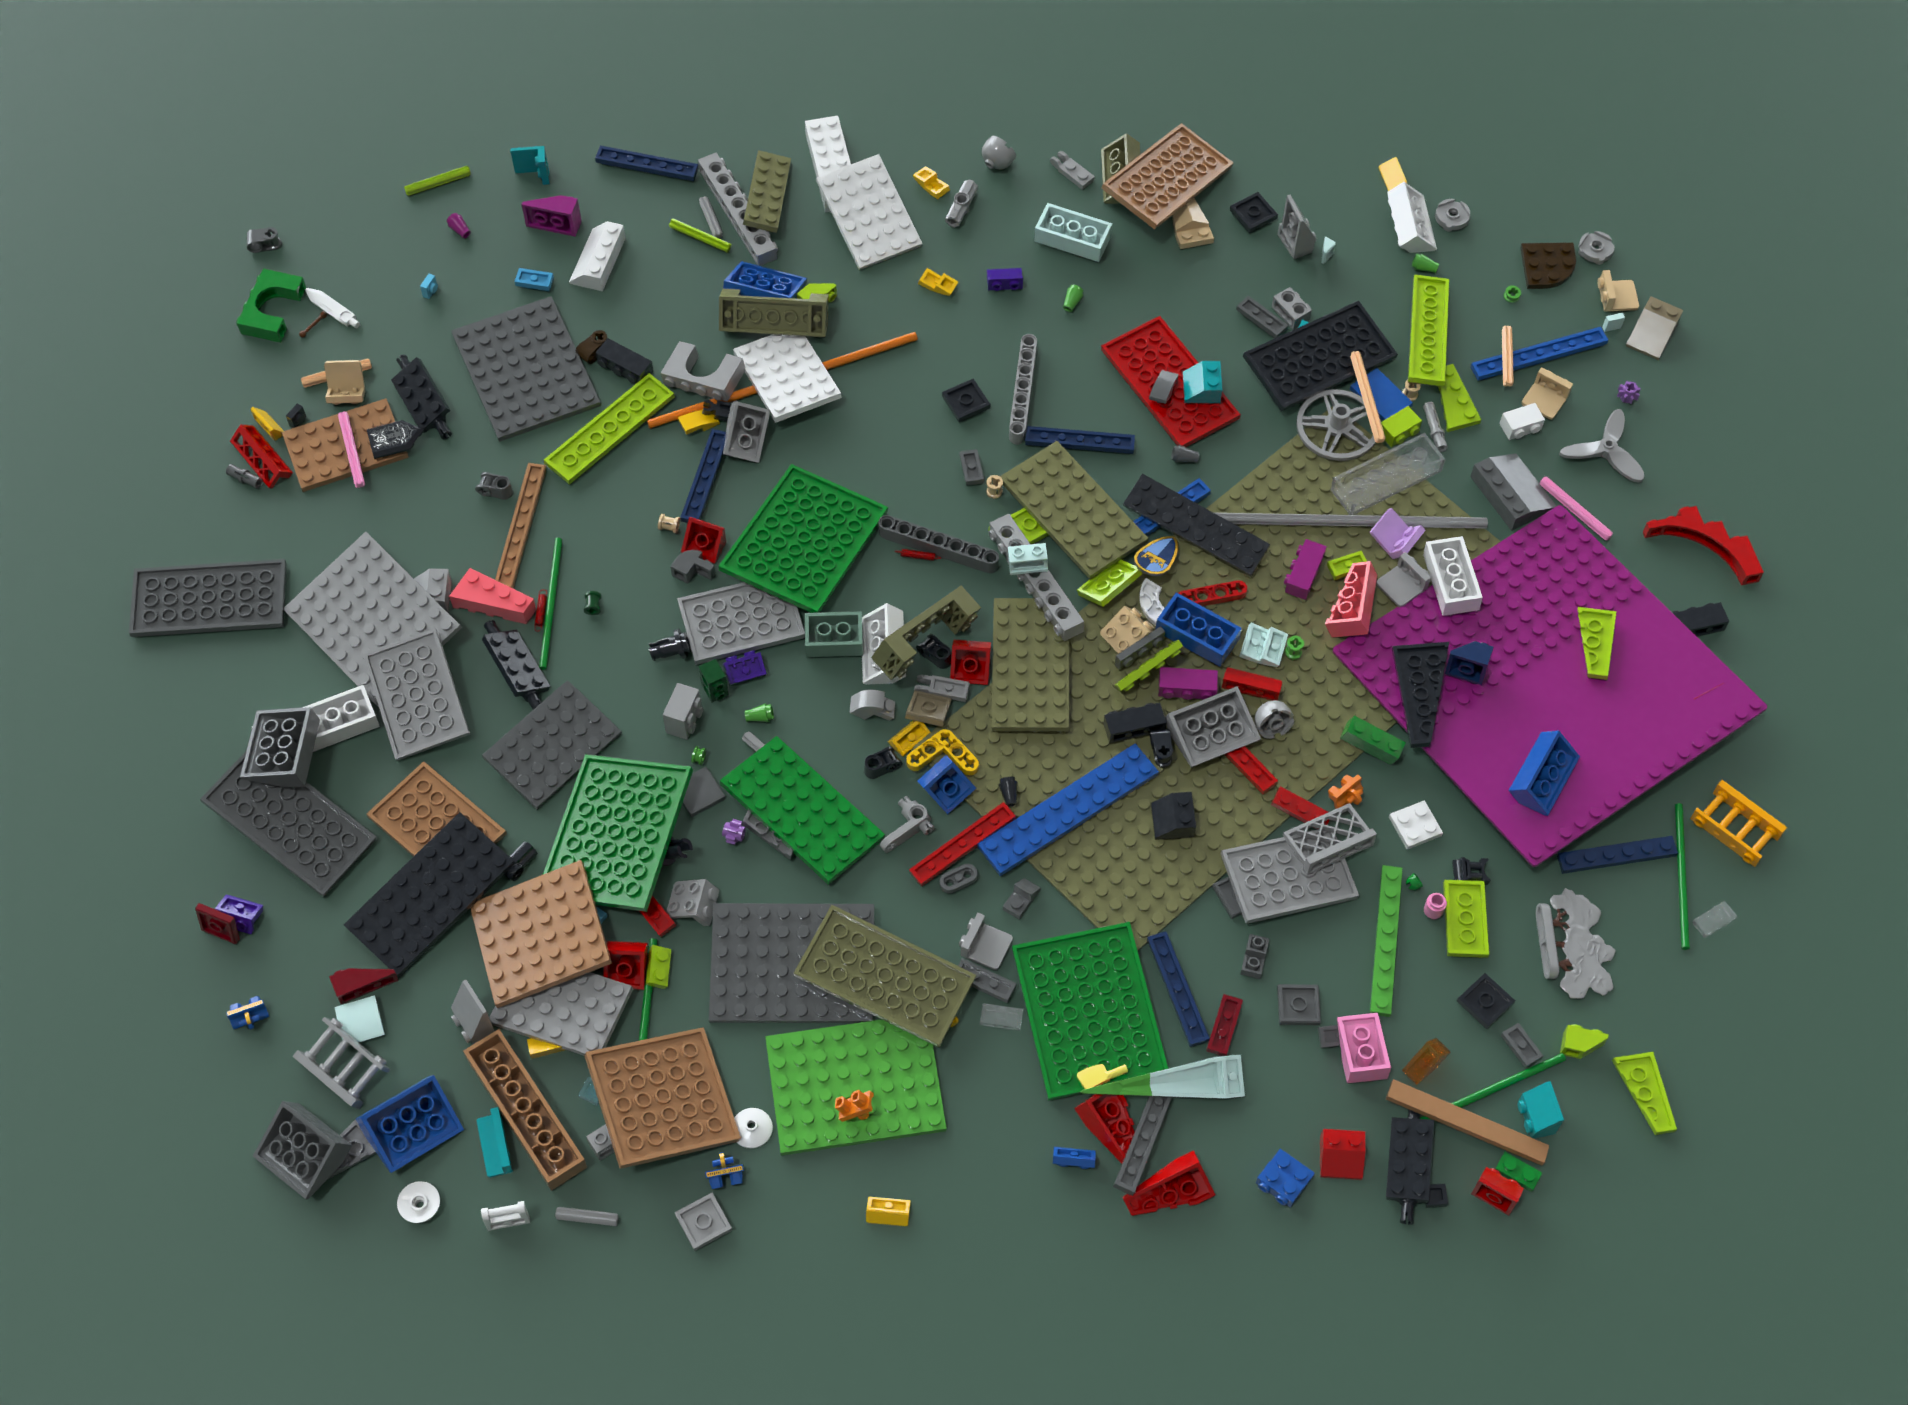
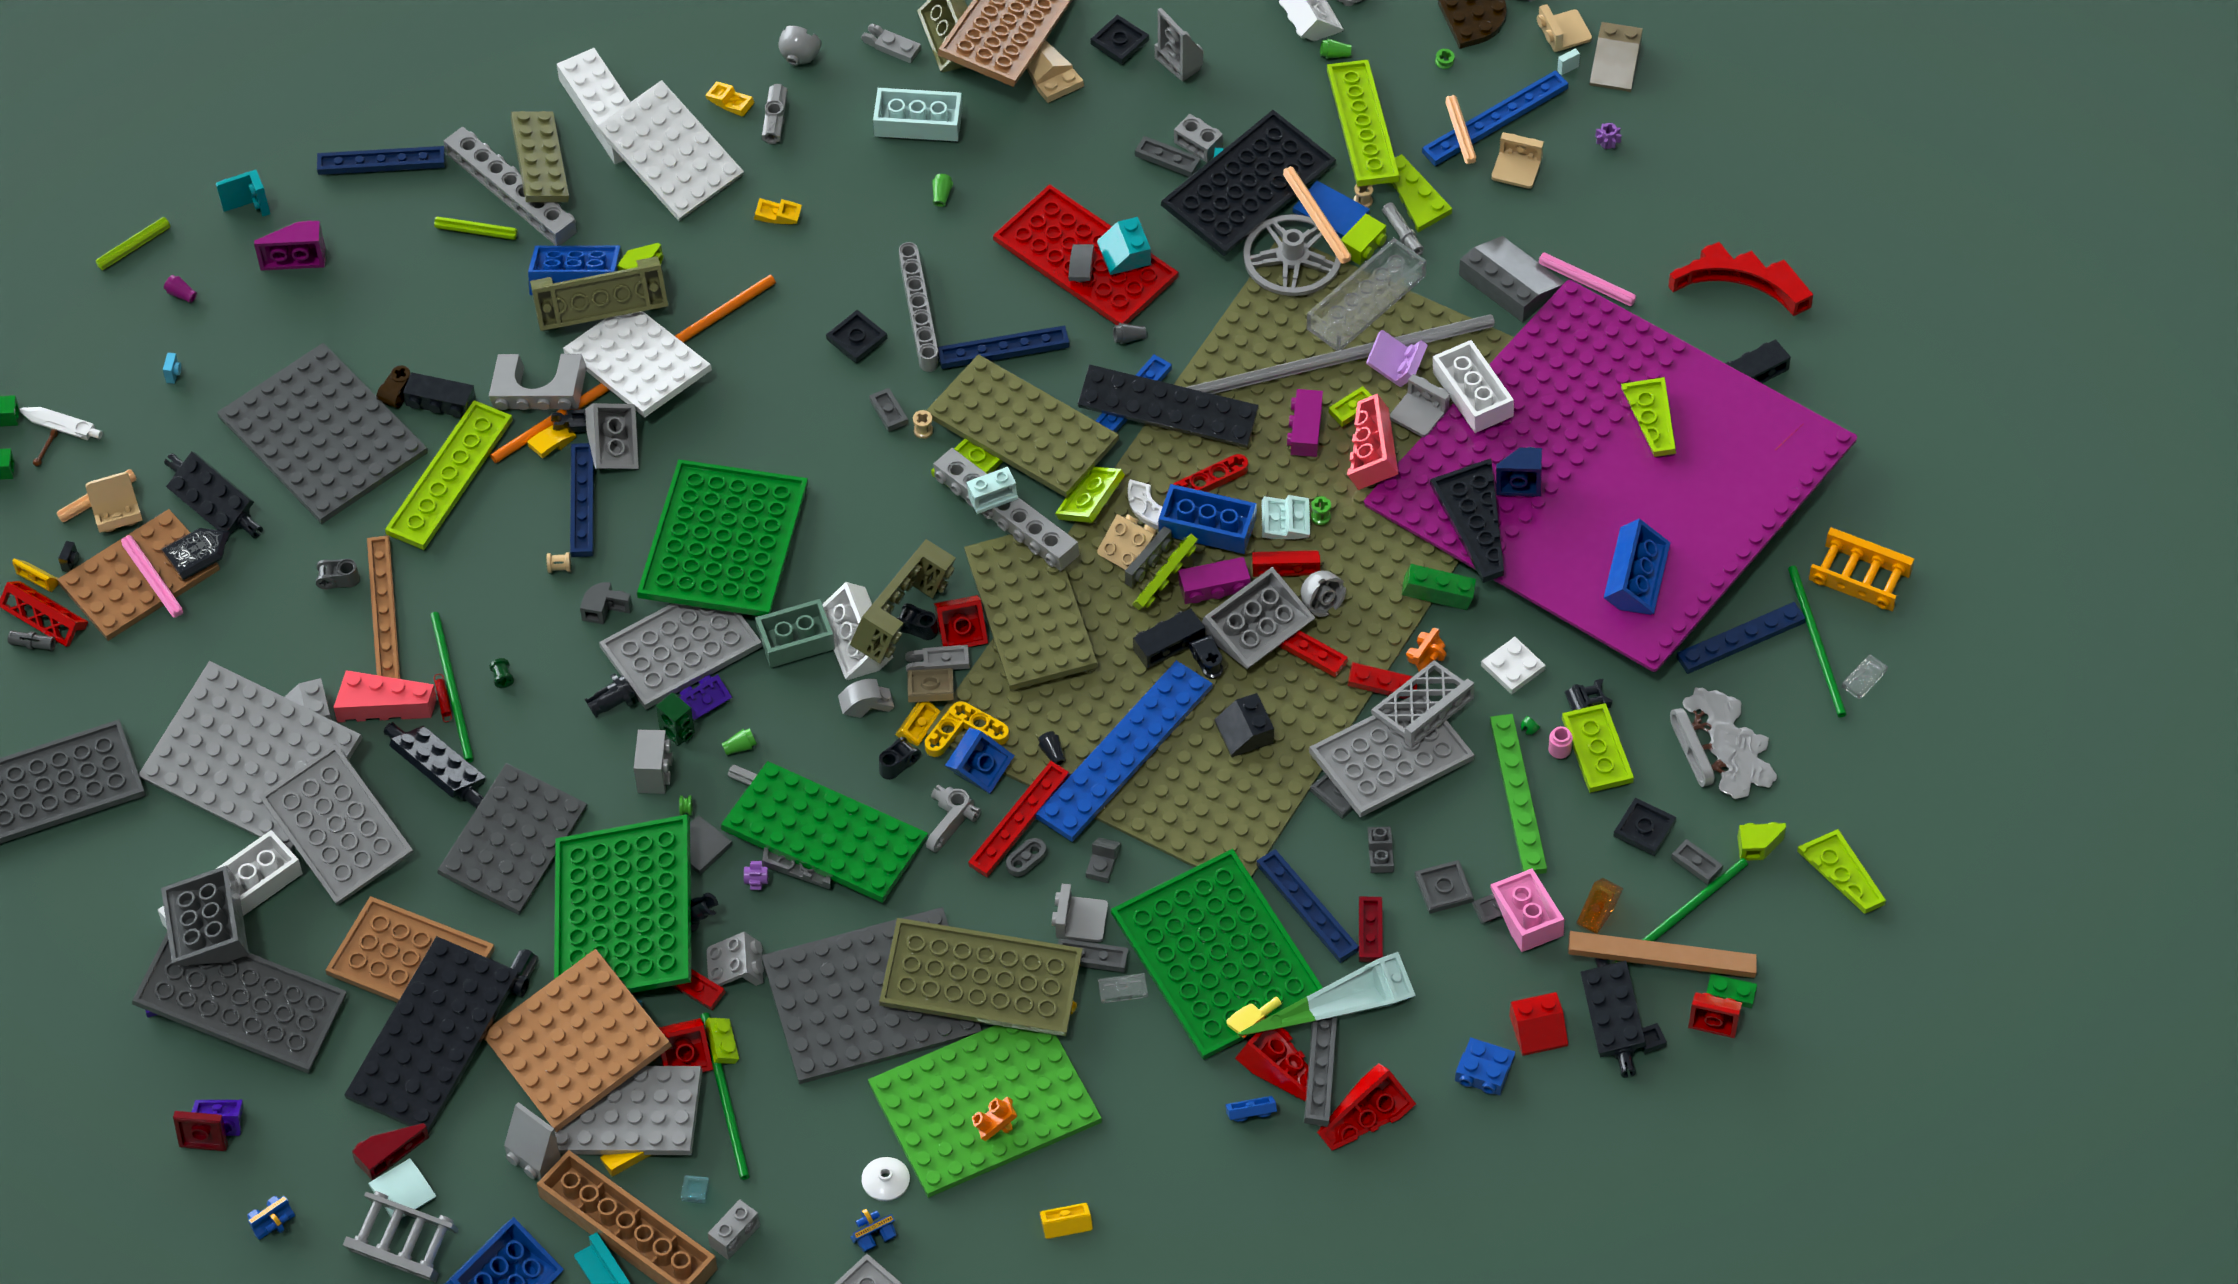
camera: 15 degrees left, 5 degrees down
(534, 279) = (295, 328): dark azure plate -> none
(599, 256) = (362, 282): white slope -> none
(662, 1097) = (777, 1170): medium nougat plate -> none
(705, 538) = (607, 565): red slope -> none
(710, 217) = (480, 204): light grey axle -> none
(918, 554) = (859, 522): red piece -> none
(933, 537) = (864, 504): dark grey beam -> none
(1004, 279) = (854, 188): dark purple bracket -> none
(1157, 556) = (1135, 451): shield -> none
(1328, 249) = (1219, 60): light aqua slope -> none
(1522, 421) = (1498, 198): white brick -> none
(1540, 1111) = (1737, 920): teal slope -> none
(1609, 449) = (1604, 204): light grey piece -> none

